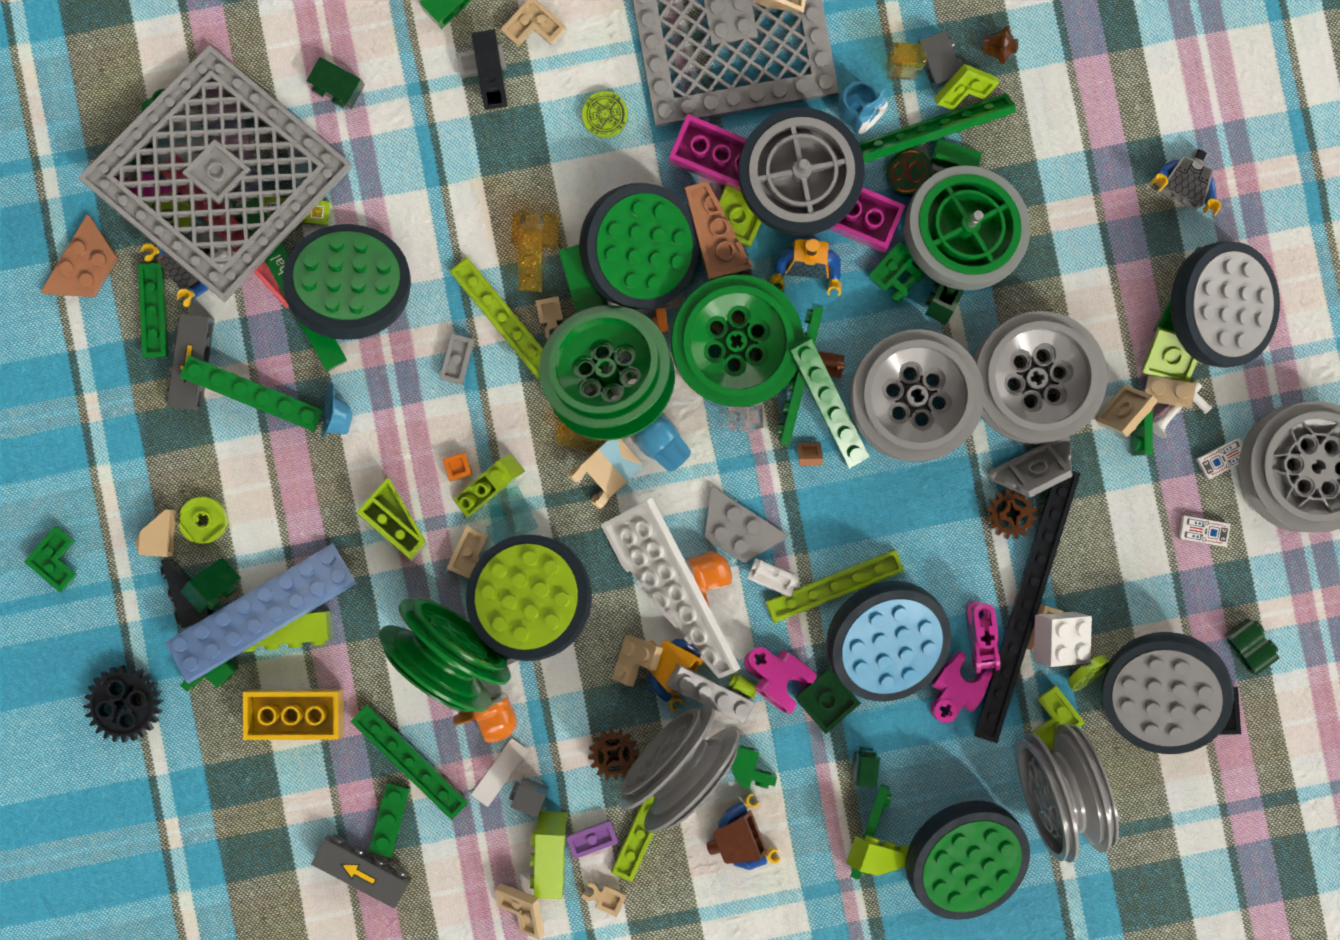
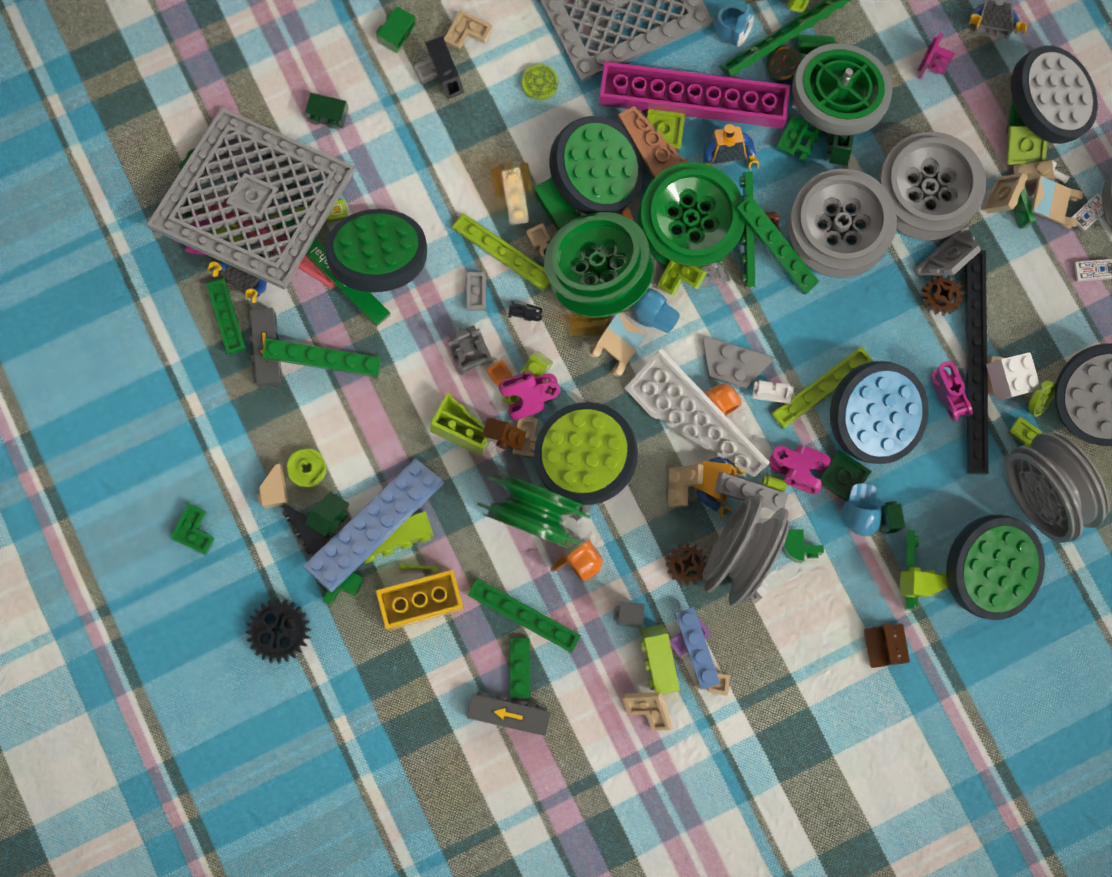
camera: 15 degrees left, 10 degrees down
(83, 264) = (161, 296): nougat wing -> none
(323, 677) = (435, 568): none -> lime hinge
(337, 414) = (392, 356): dark azure piece -> none
(425, 420) = (465, 342): none -> dark grey piece
(439, 548) = (503, 434): none -> reddish brown brick
(483, 505) = (531, 393): none -> dark pink piece
(499, 772) = (598, 606): white sticker -> none
(510, 401) = (526, 311): none -> black piece
(596, 855) = (697, 648): none -> medium blue plate
(634, 845) = (725, 628): lime tile -> none
(696, 407) = (676, 273): none -> lime plate
(740, 838) = (808, 603): copper torso -> none
(801, 171) = (704, 78): light grey wheel -> none
(809, 454) = (772, 291): nougat plate -> none
(816, 909) = (886, 645): none -> reddish brown bracket
(827, 764) = (859, 520): none -> dark azure piece
(955, 691) = (943, 441): dark pink piece -> none
(1096, 216) = (935, 58): none -> dark pink bracket
(1180, 434) = (1052, 201): none -> tan flag

